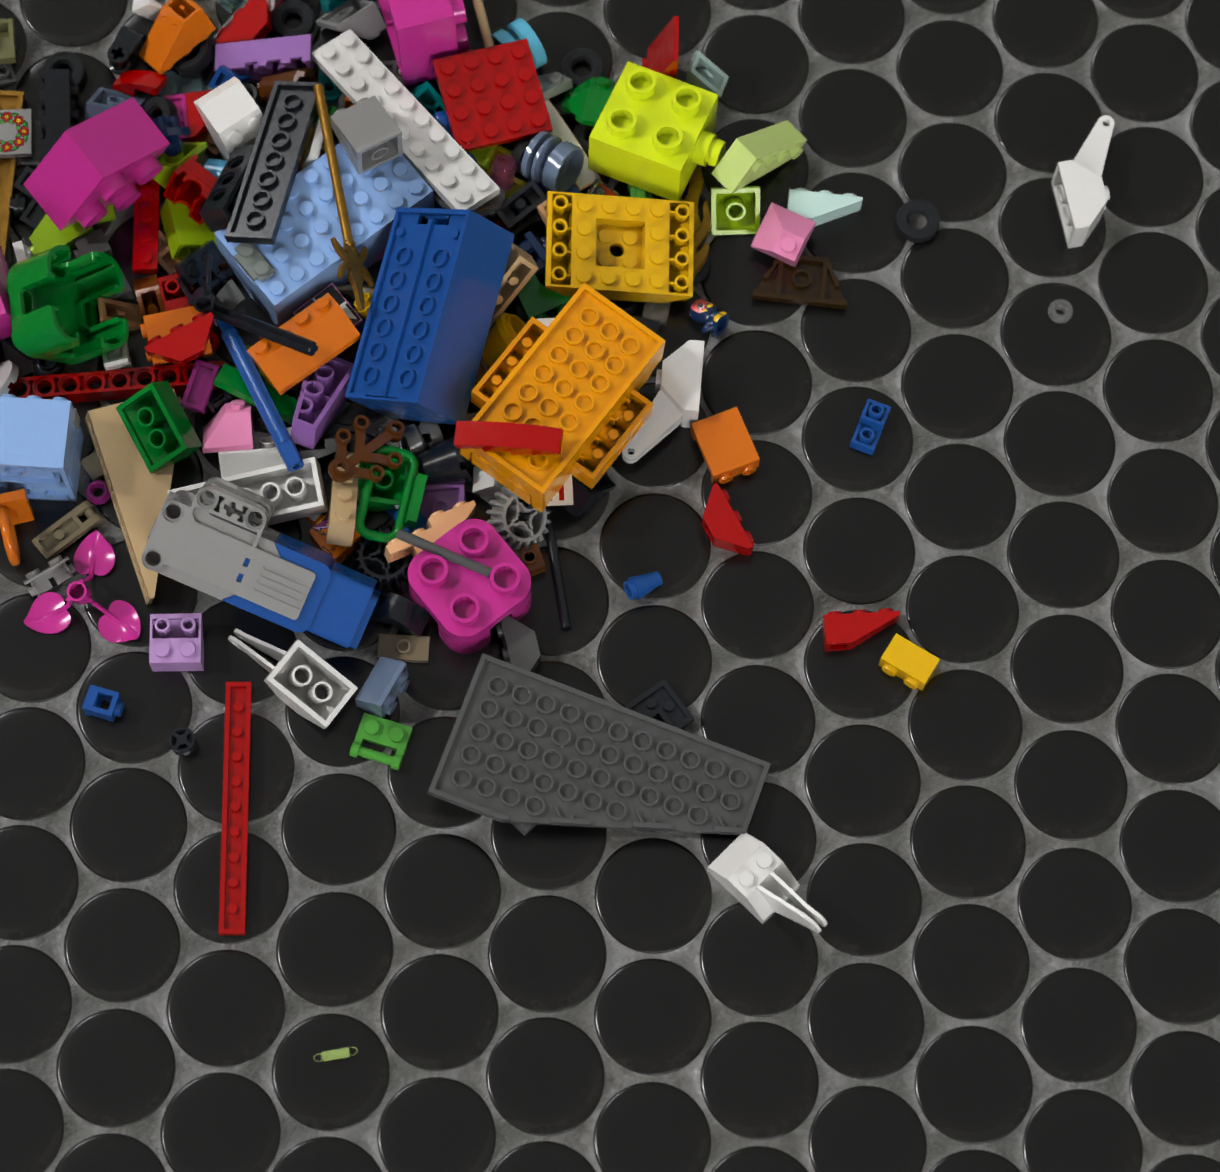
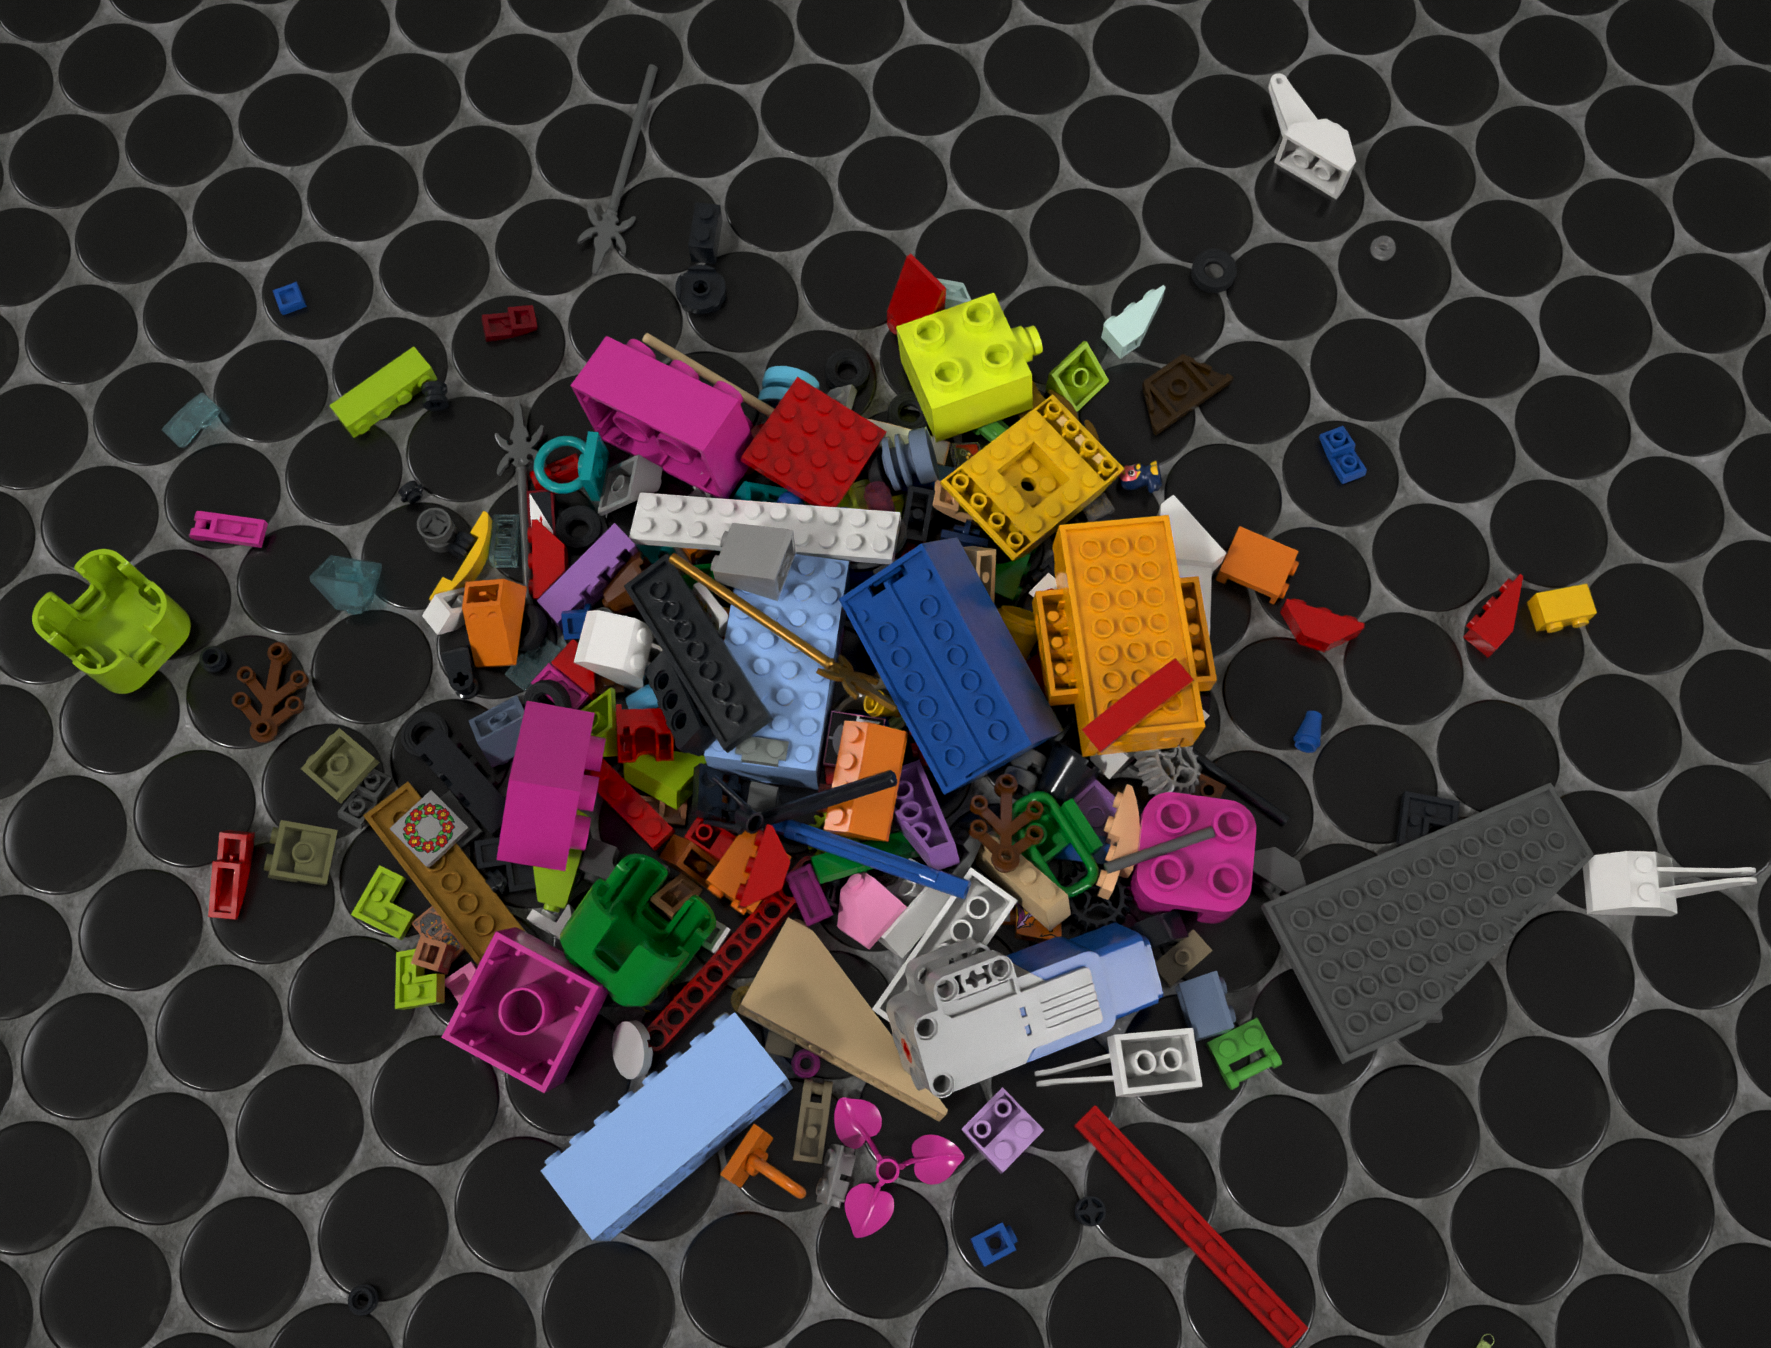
camera: 40 degrees left, 0 degrees up
(140, 80) = (494, 690): red slope -> none
(159, 426) = (812, 961): green slope -> none
(172, 129) = (577, 700): dark blue hips -> none
(588, 100) = (884, 387): green slope -> none
(758, 154) = (1060, 319): yellowish green wedge -> none
(783, 234) = (1137, 363): bright pink slope -> none

